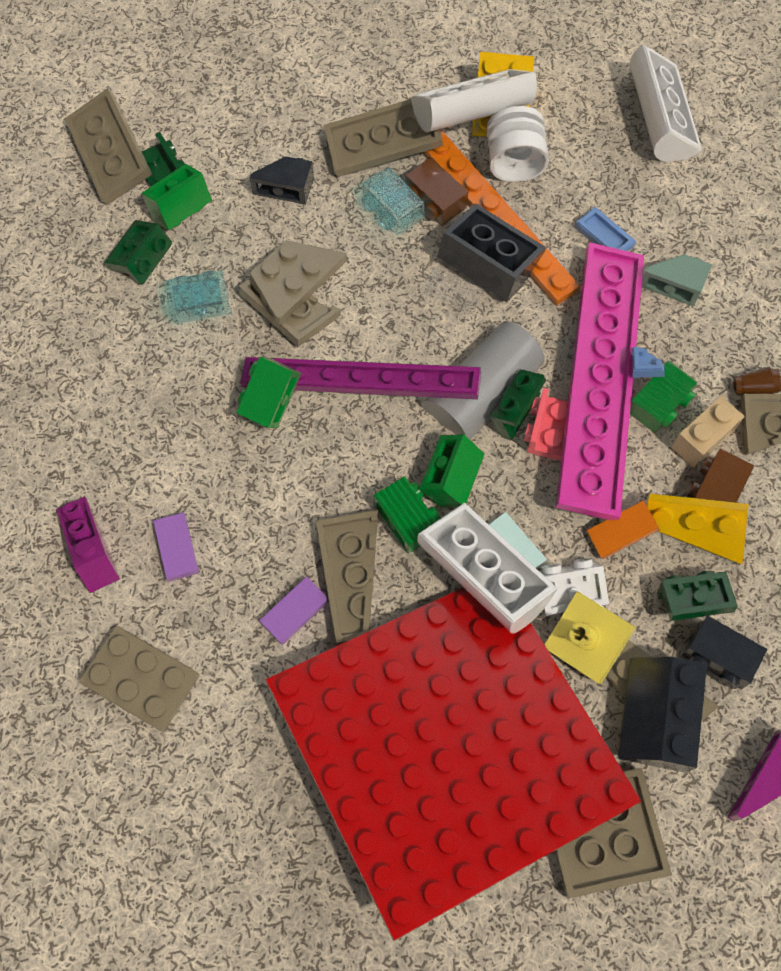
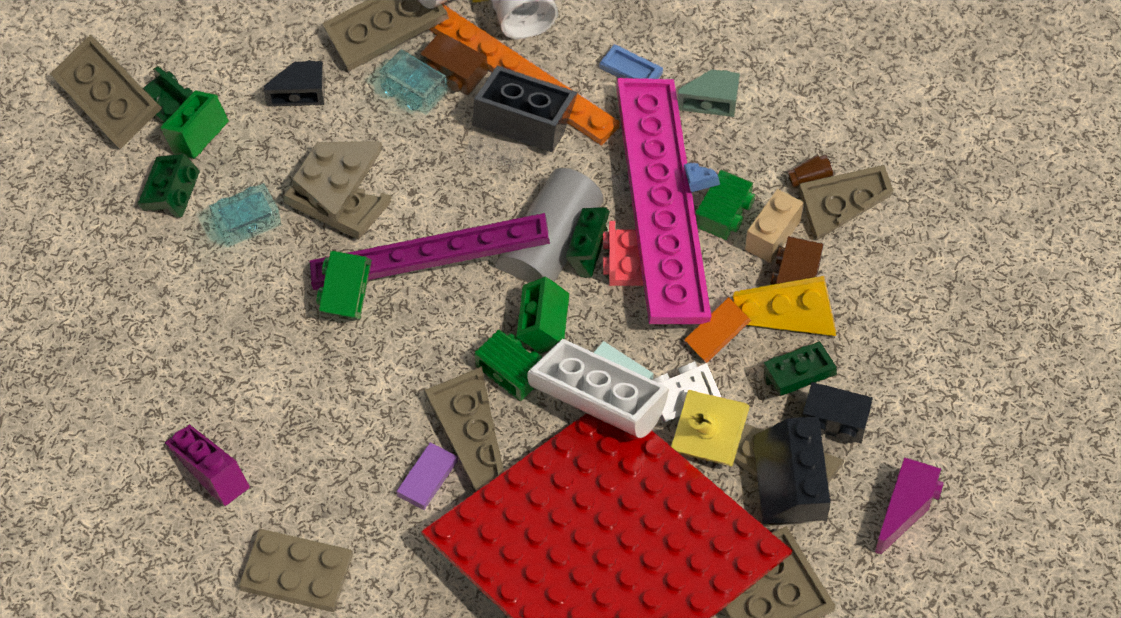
camera: 15 degrees left, 10 degrees down
(176, 547) = (294, 447): medium lavender tile -> none

